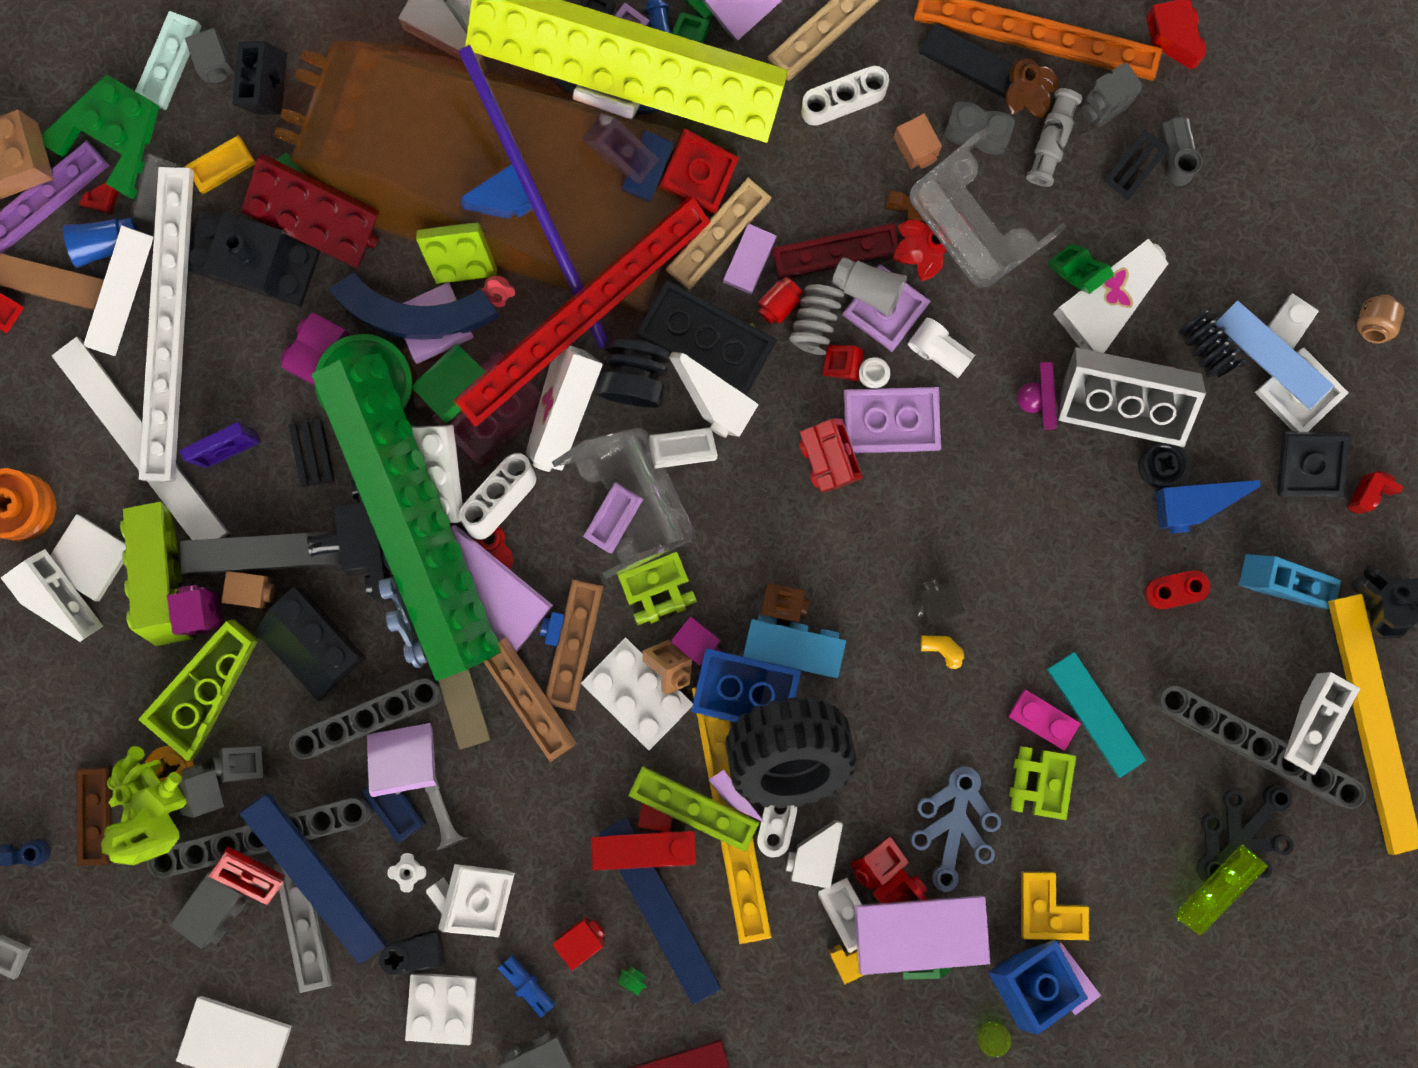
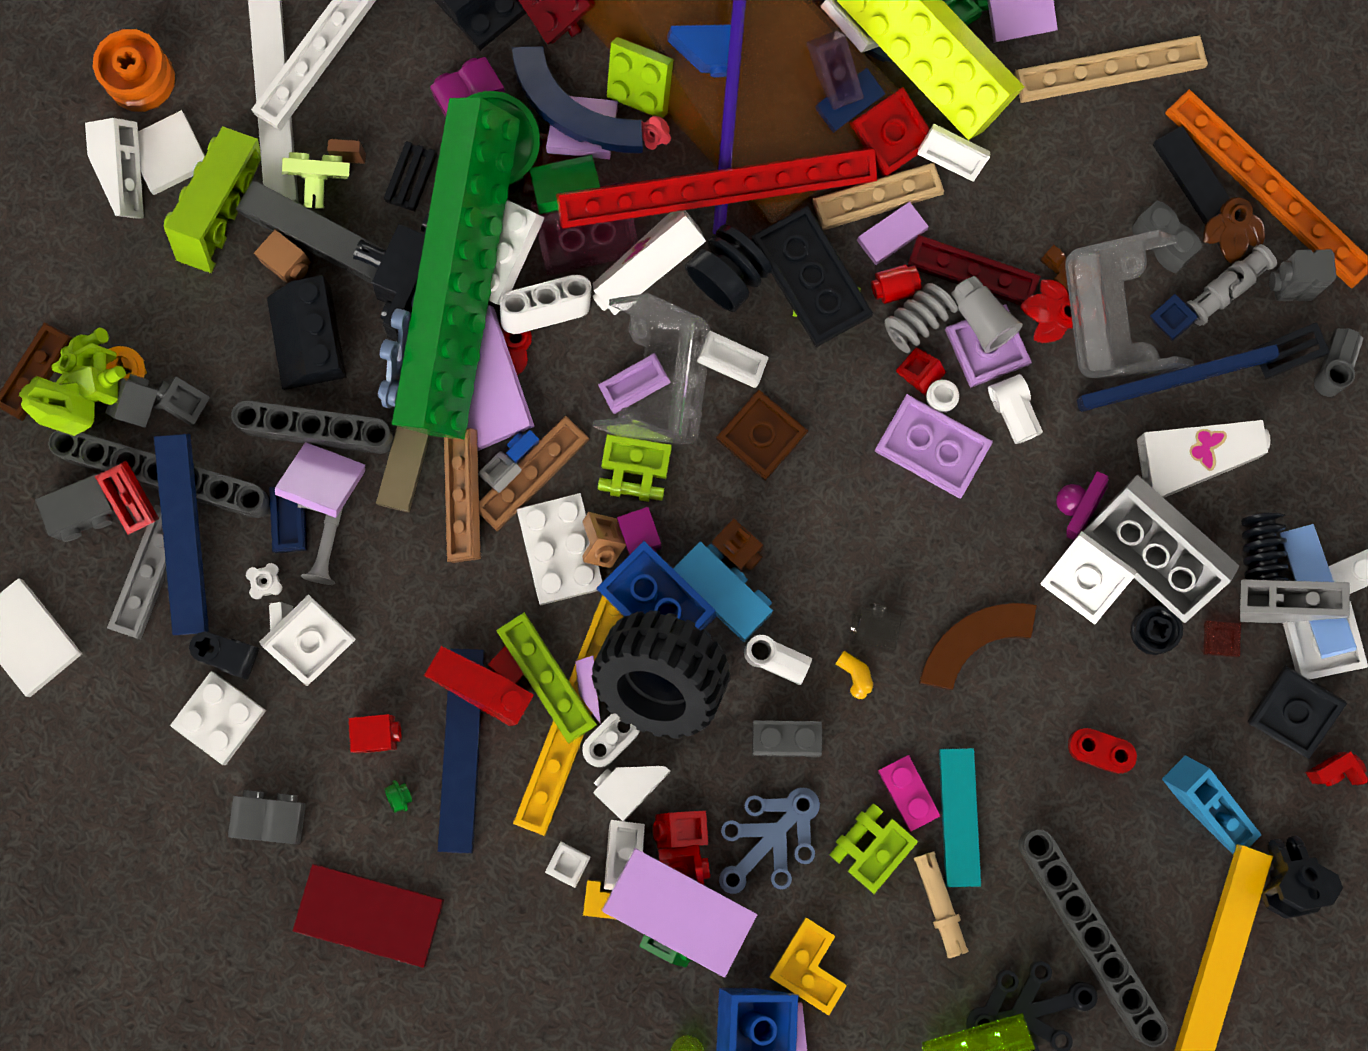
camera: 30 degrees right, 5 degrees down
(195, 611) = (227, 247): magenta brick -> none
(197, 695) = (189, 317): lime wedge -> none
(220, 445) = (337, 121): dark purple tile -> none
(231, 503) = (315, 174): none -> yellowish green plate
(243, 465) = (349, 150): none -> nougat tile
(526, 986) = (303, 744): blue pin -> none
(547, 660) = (499, 471): none -> light grey tile
(715, 399) = (787, 333): white slope -> none
(745, 496) = (762, 435): none -> reddish brown tile
(760, 160) = (953, 152): none -> white tile
(804, 948) = (567, 864): none -> white tile
(830, 455) = (858, 442): red brick -> none
(853, 84) = (1075, 134): white beam -> none
(875, 676) = (780, 661): none -> white piece
(918, 142) = (1104, 217): nougat brick -> none
(920, 737) = (787, 738): none -> dark grey brick
(1016, 559) = (972, 633): none -> reddish brown tile
(1024, 193) = (1174, 317): none -> dark blue plate
(1059, 243) = (1178, 378): none -> dark blue tile
(1079, 268) = (1184, 411): green slope -> none
(1084, 455) = (1088, 577): none -> white plate
(1135, 804) = (941, 905): none -> tan pin
(1194, 504) = (1160, 680): blue slope -> none
(1218, 439) = (1222, 639): none -> clear red tile
(1261, 376) = (1293, 601): none -> light grey slope
(1319, 720) = (1163, 945): white slope -> none

